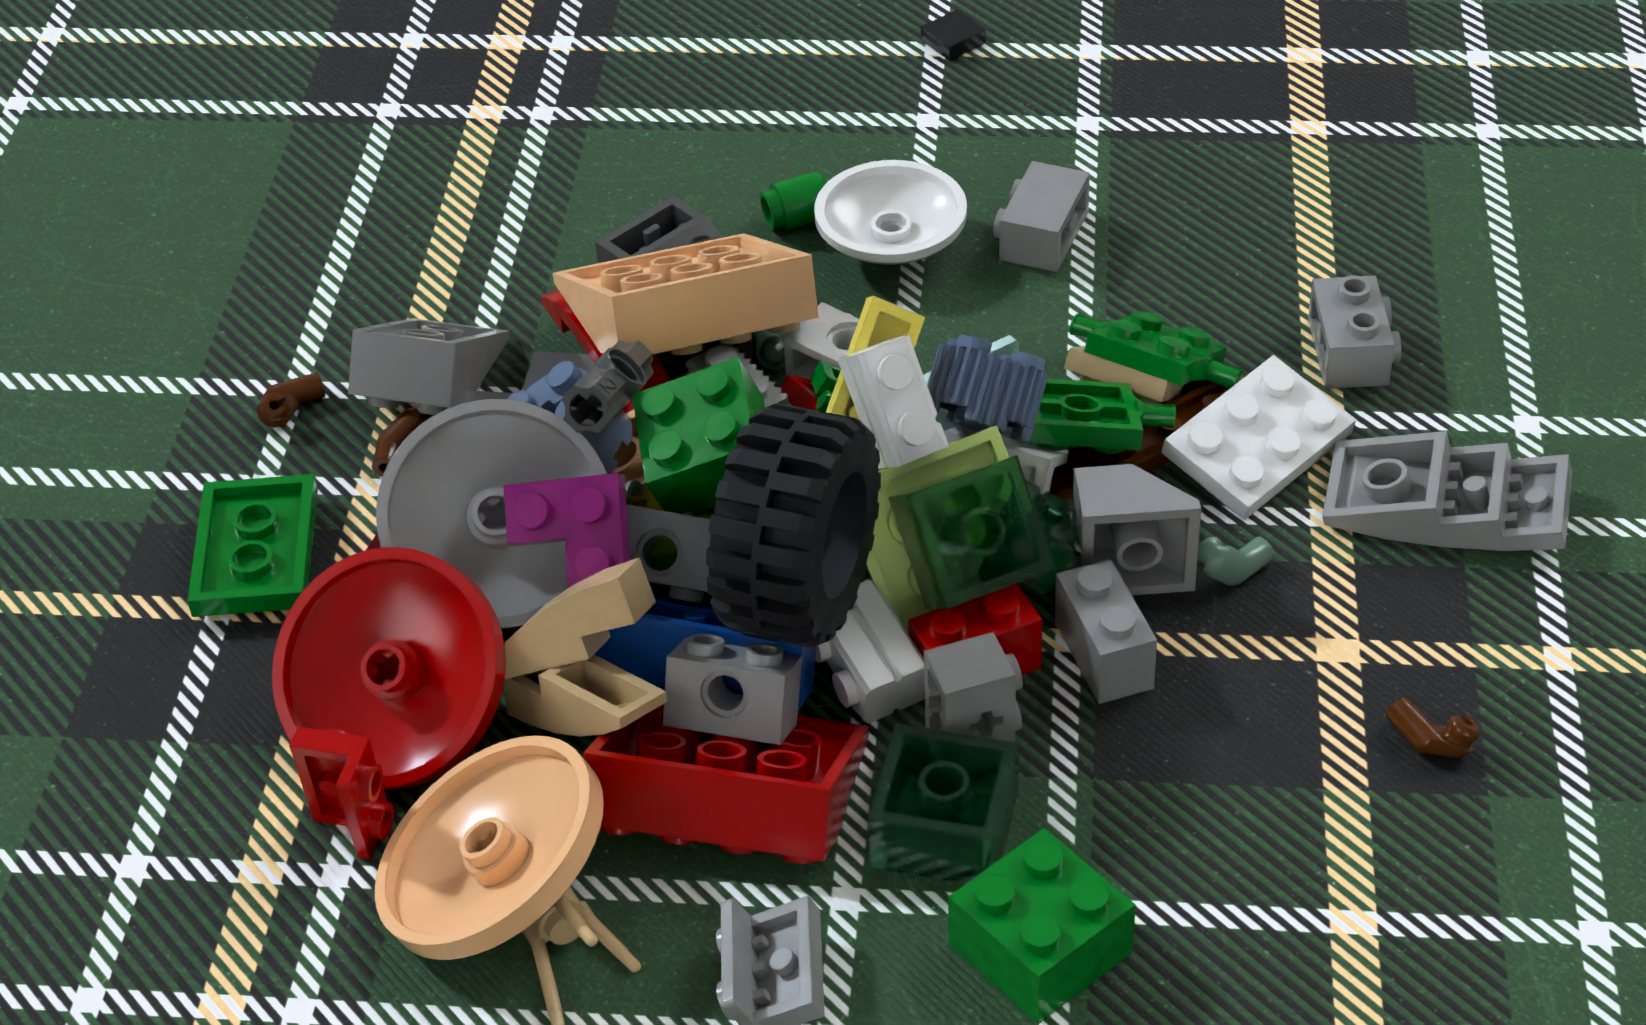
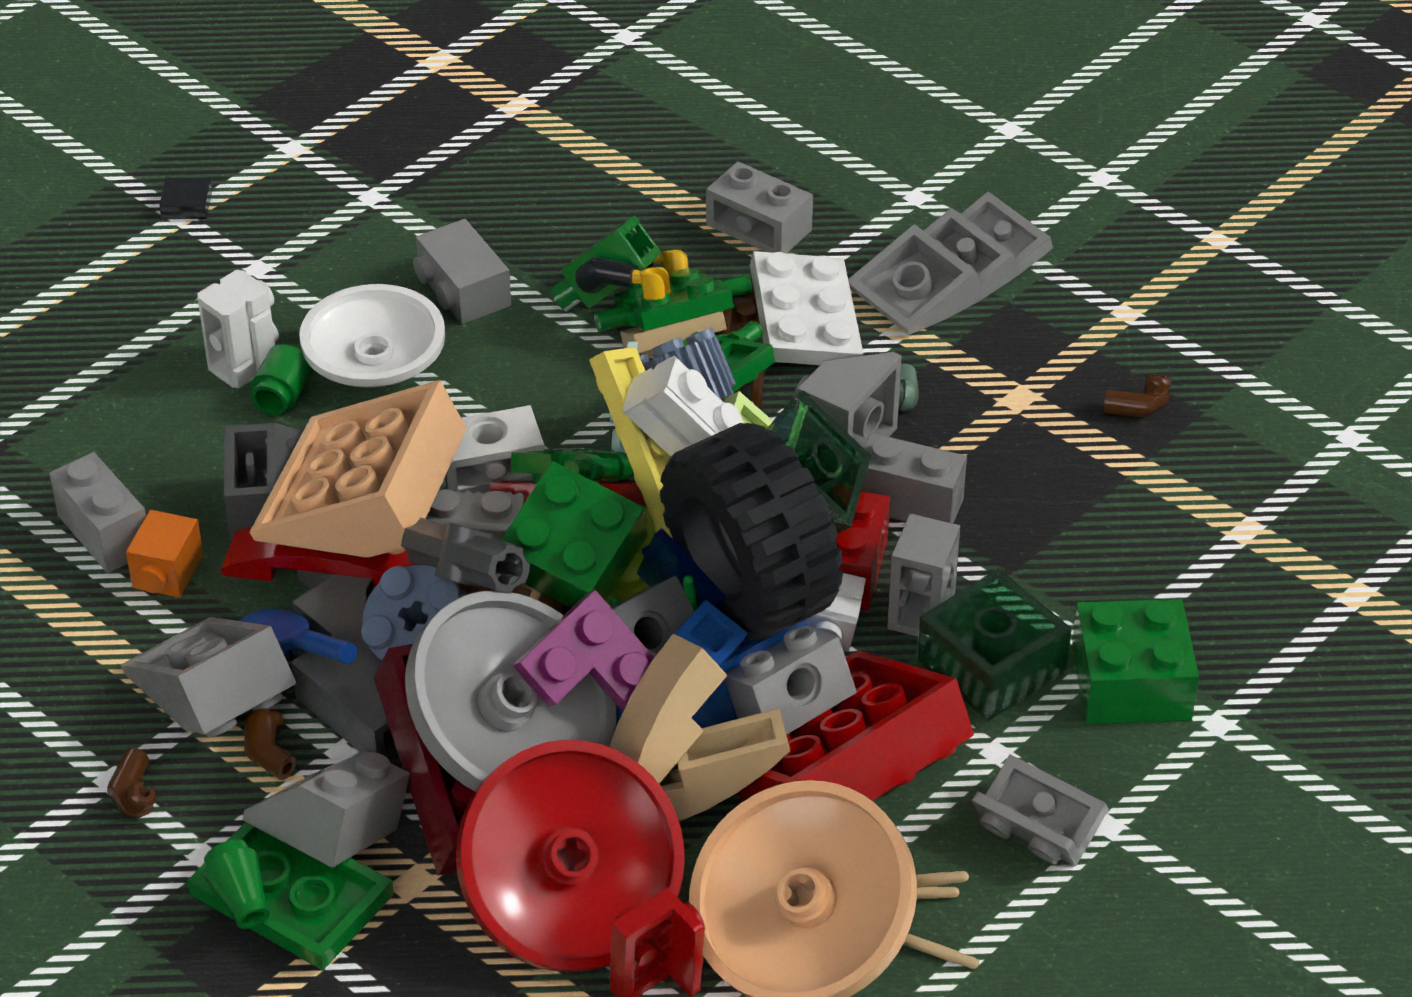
camera: 55 degrees left, 0 degrees up
(206, 503) = (237, 880): none -> green cone
(325, 511) = (336, 808): none -> light grey slope
(499, 369) = (294, 635): none -> blue piece
(531, 259) = (164, 553): none -> orange brick
(543, 204) = (97, 509): none -> light grey brick
(685, 594) = (712, 632): none -> blue plate
(808, 131) = (237, 326): none -> white brick
(1149, 280) = (617, 262): none -> torso

